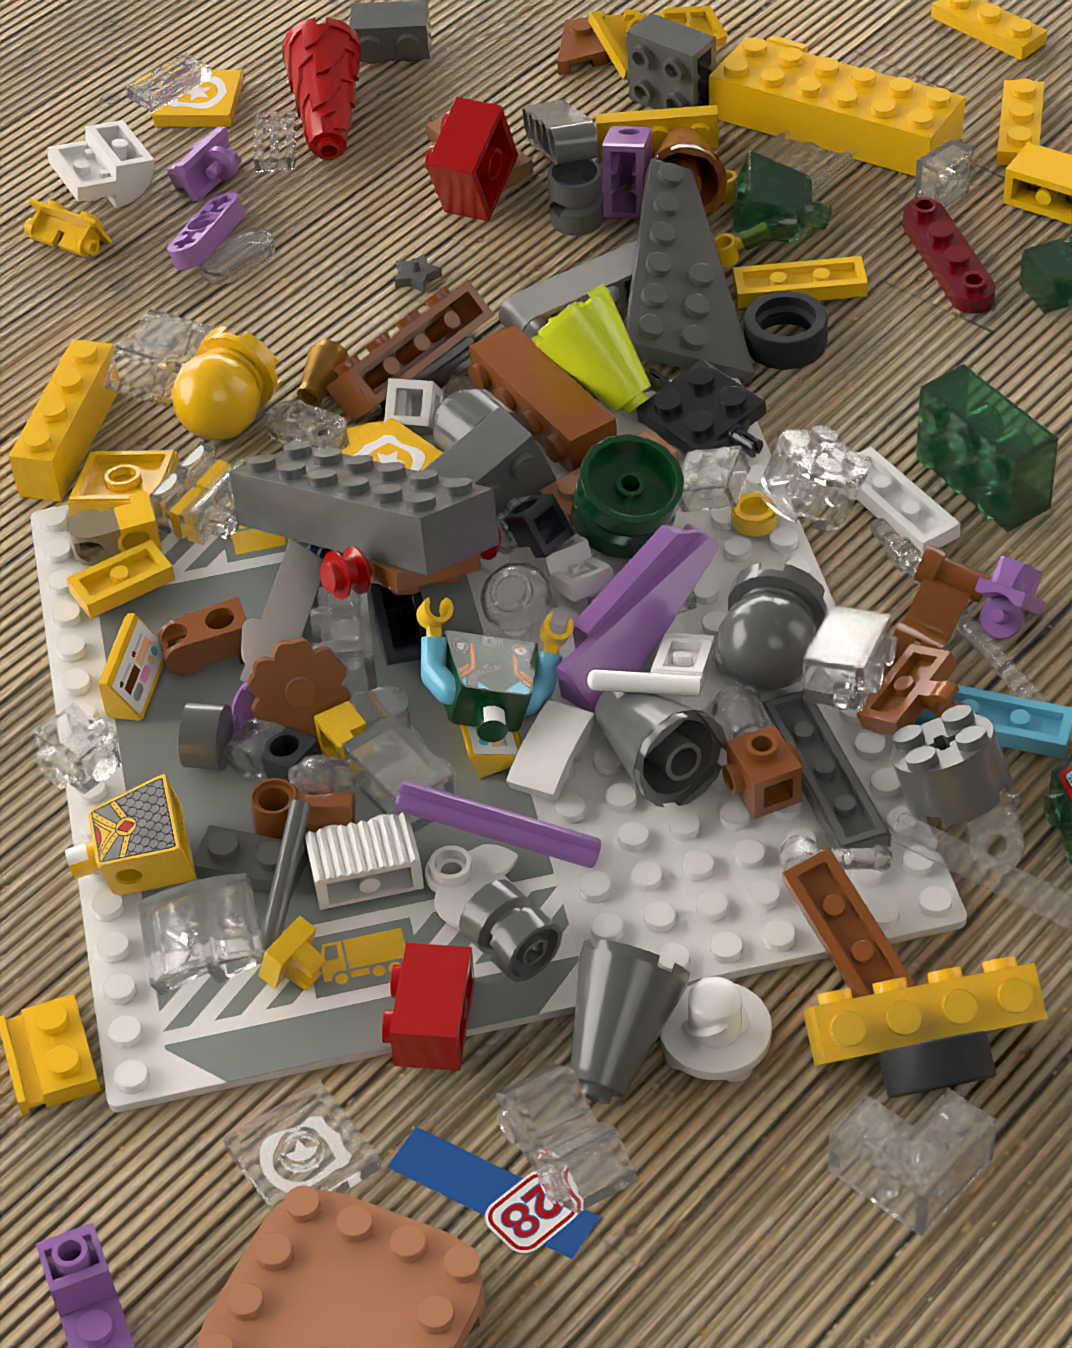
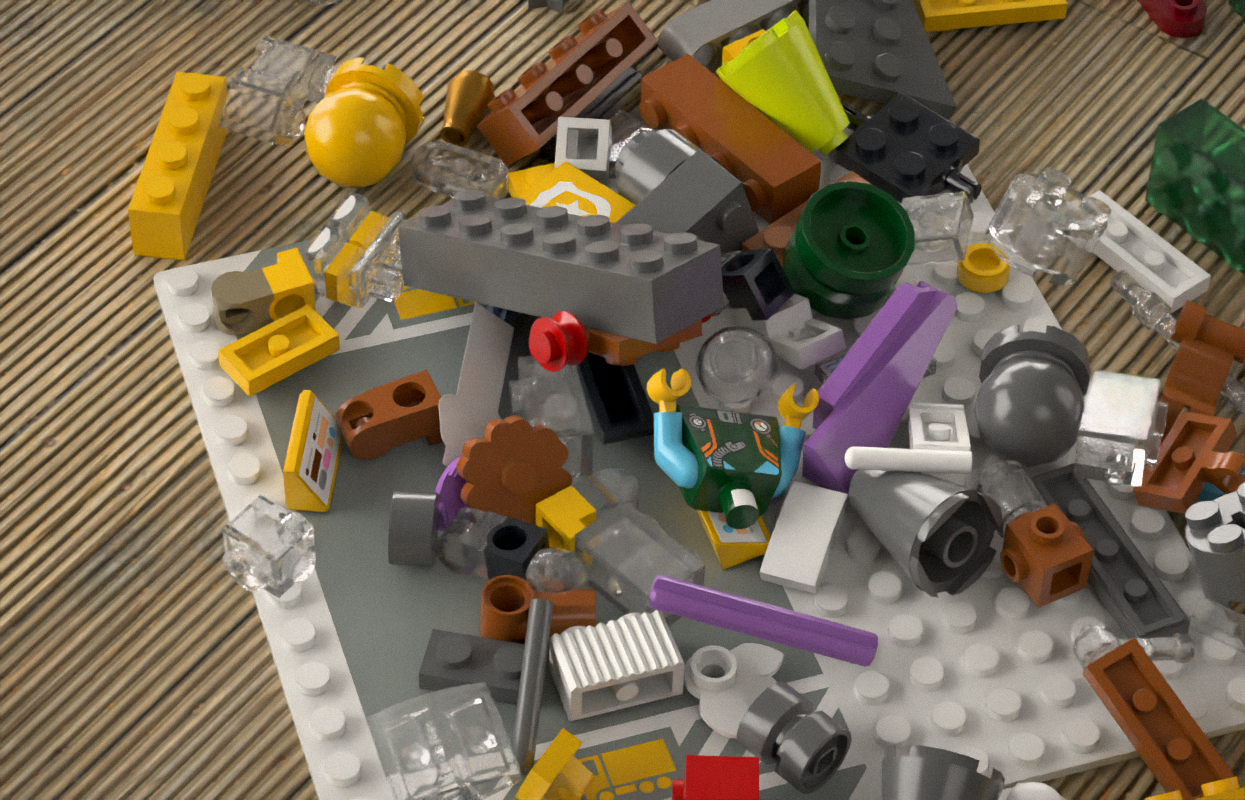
camera: 10 degrees left, 0 degrees up
(114, 475) = (251, 234): yellow tile -> none
(137, 841) = (358, 650): torso -> none
(781, 309) = (989, 34): black tyre -> none

